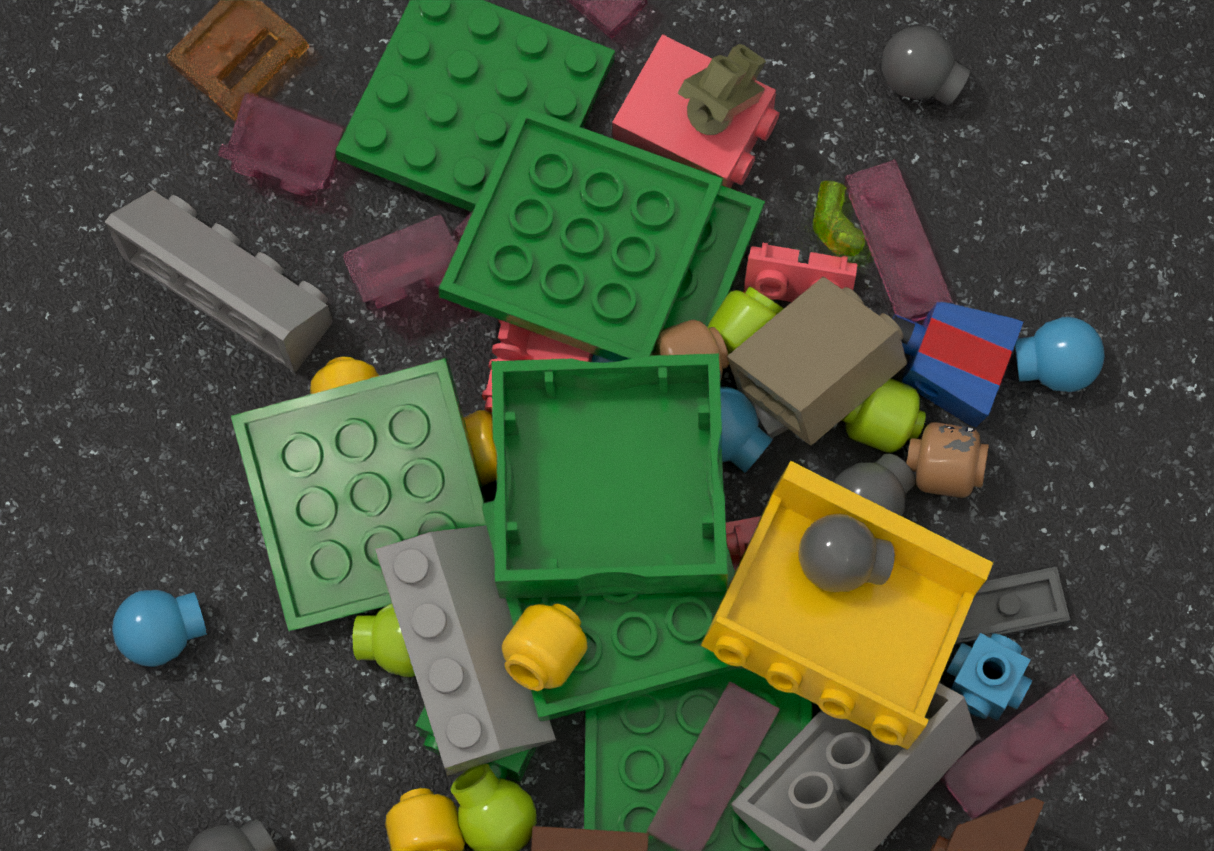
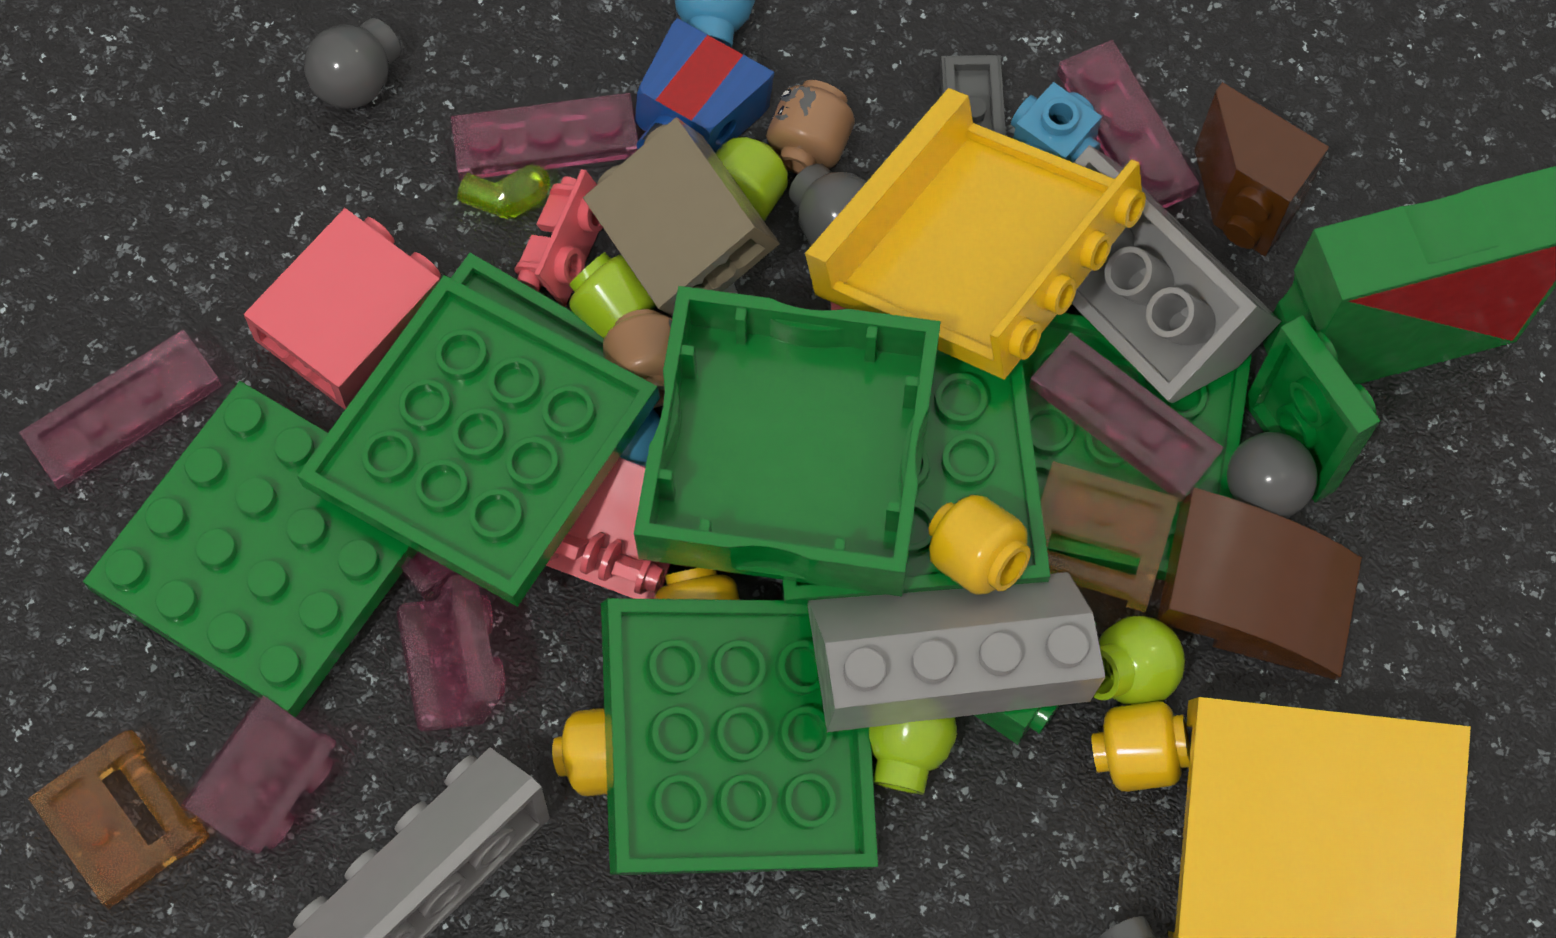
camera: 85 degrees left, 5 degrees down
(614, 769) = (1110, 517): none -> clear orange plate
(723, 90) = (343, 247): olive hips -> none
(843, 554) = (919, 223): dark grey piece -> none

